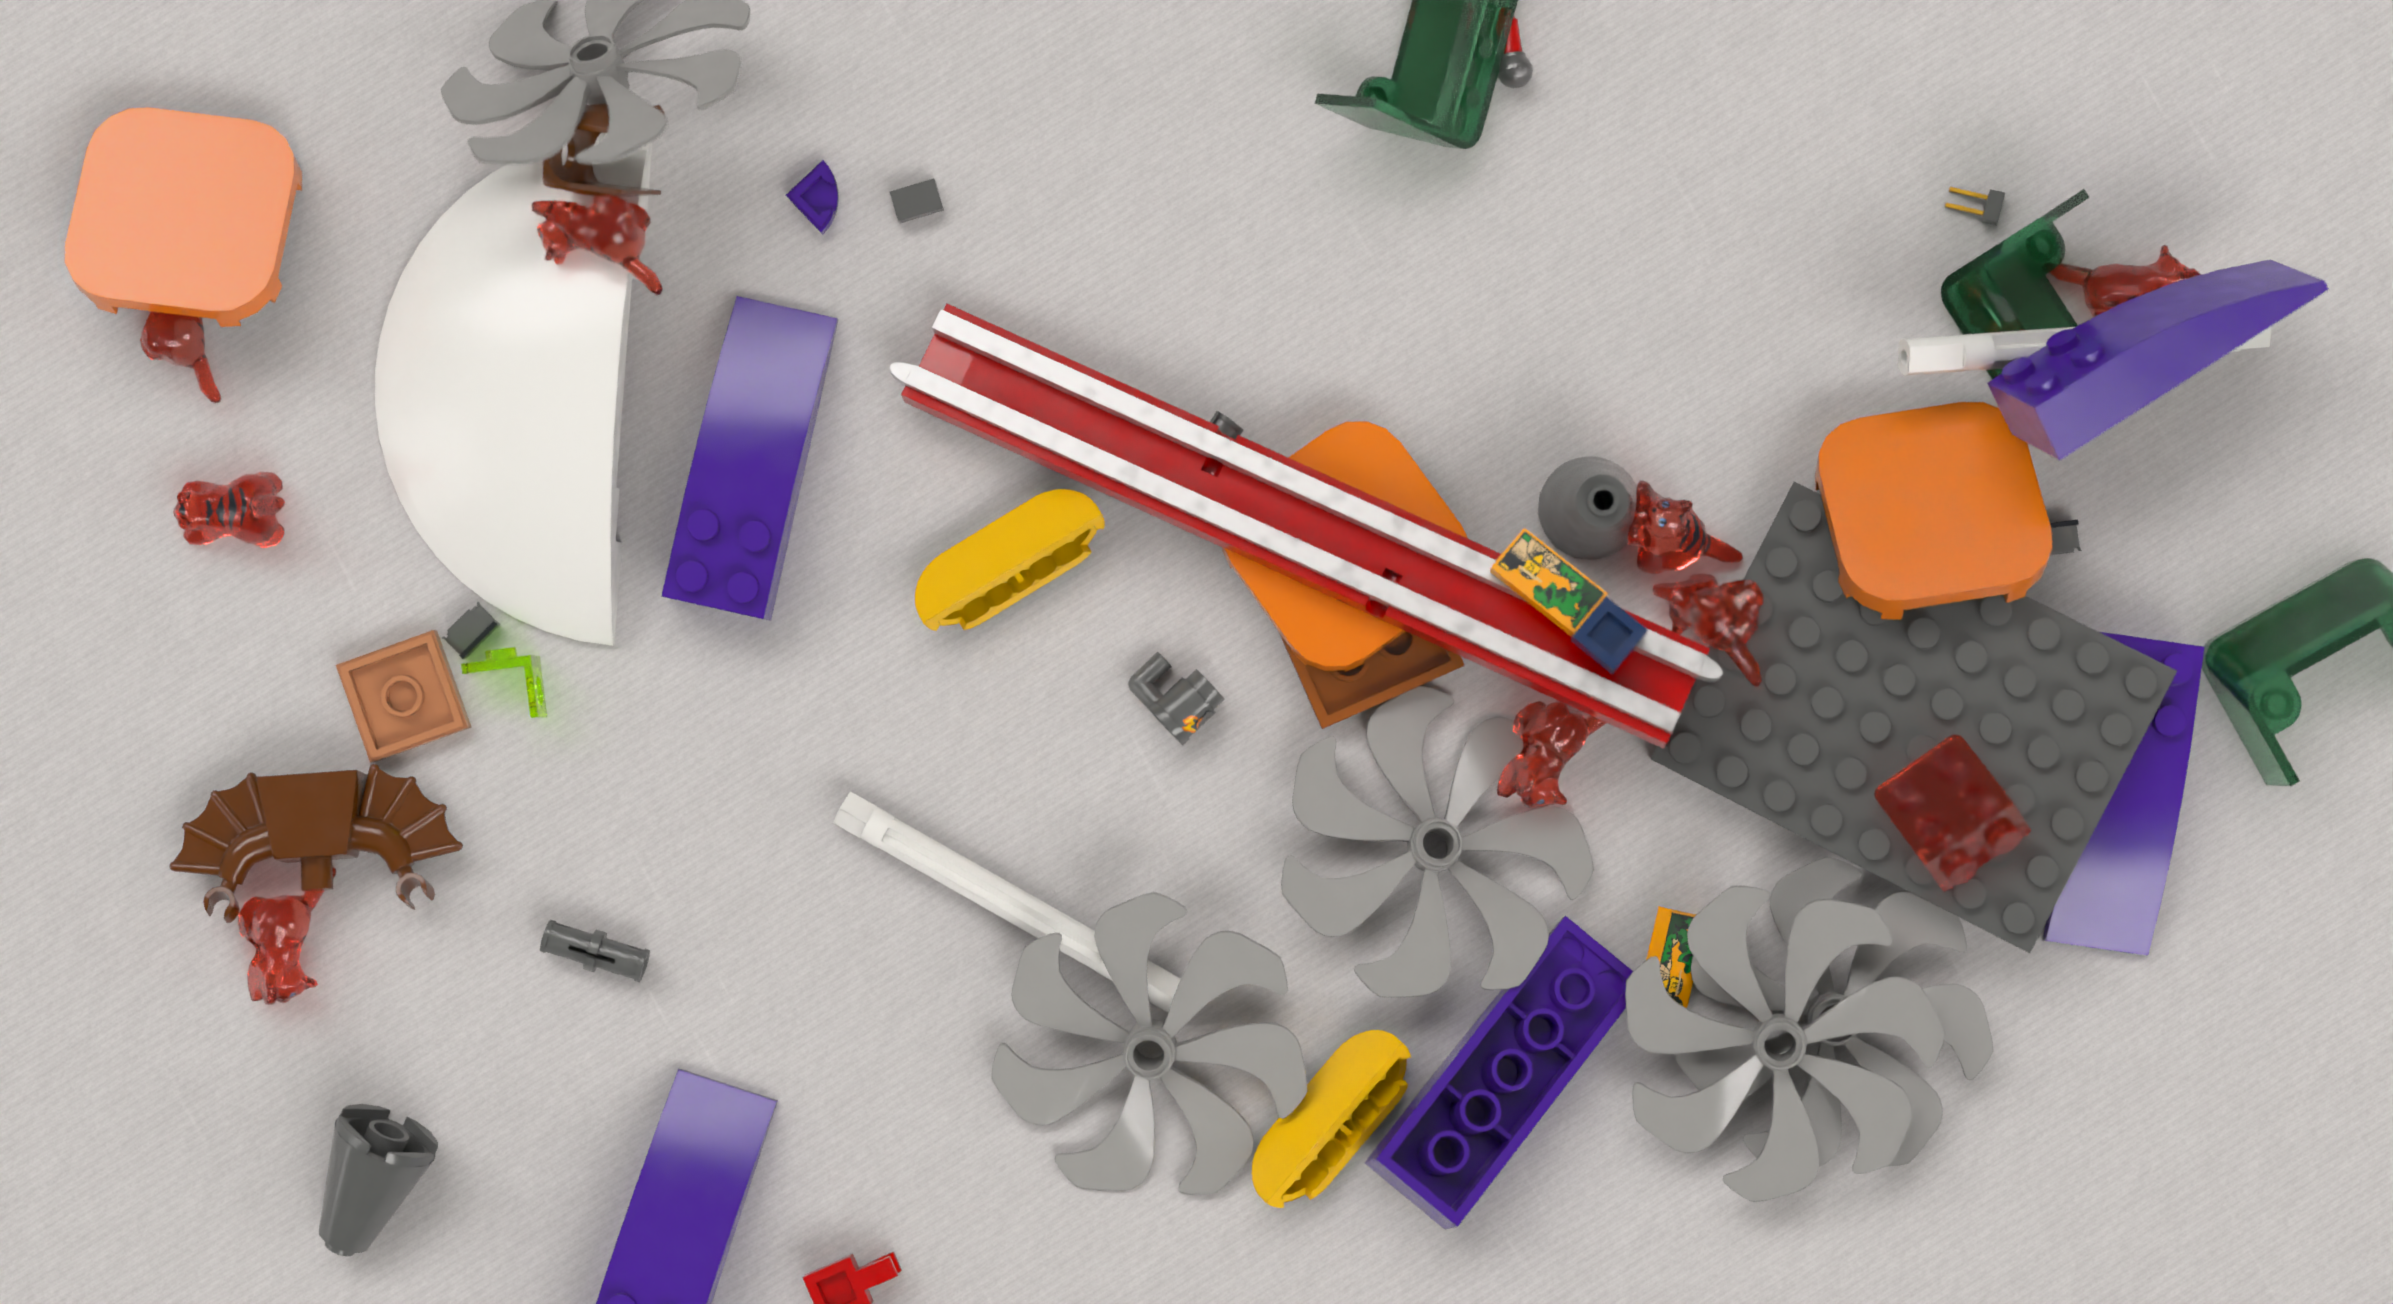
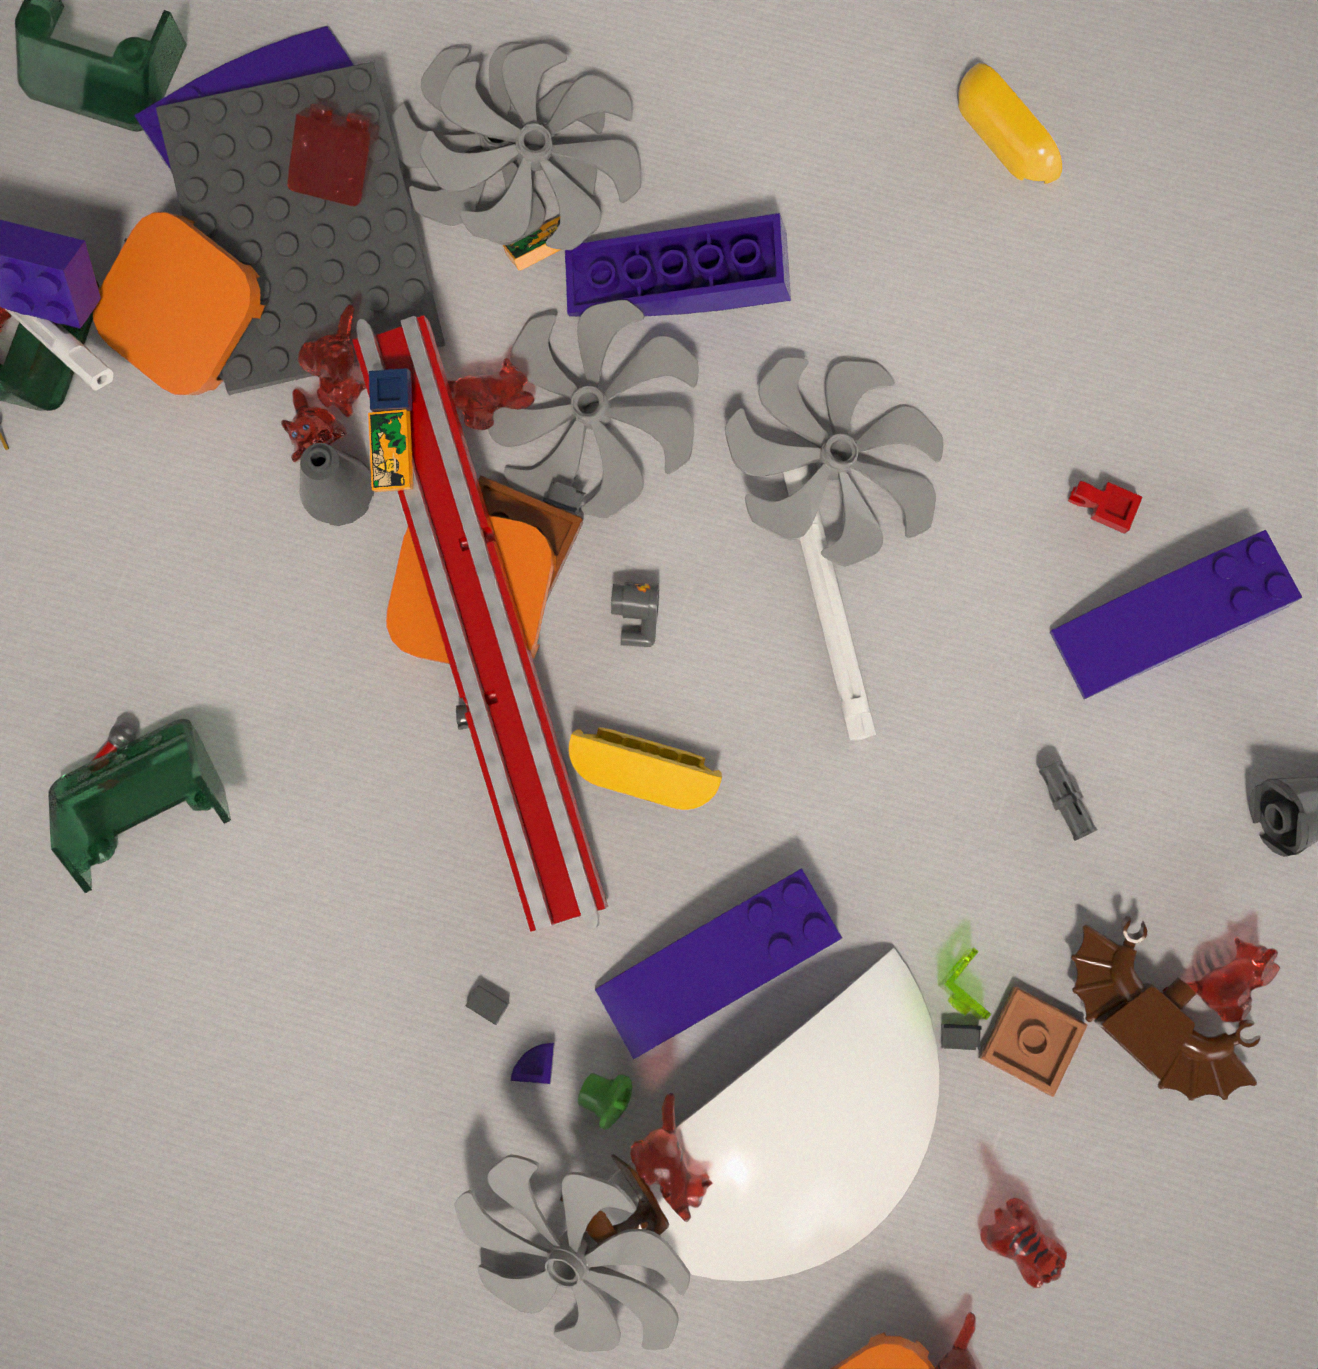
camera: 130 degrees left, 10 degrees down
(723, 236) = (606, 1097): none -> bright green piece
(1333, 1119) = (768, 336): yellow brick -> none
(1362, 730) = (564, 497): none -> dark grey piece

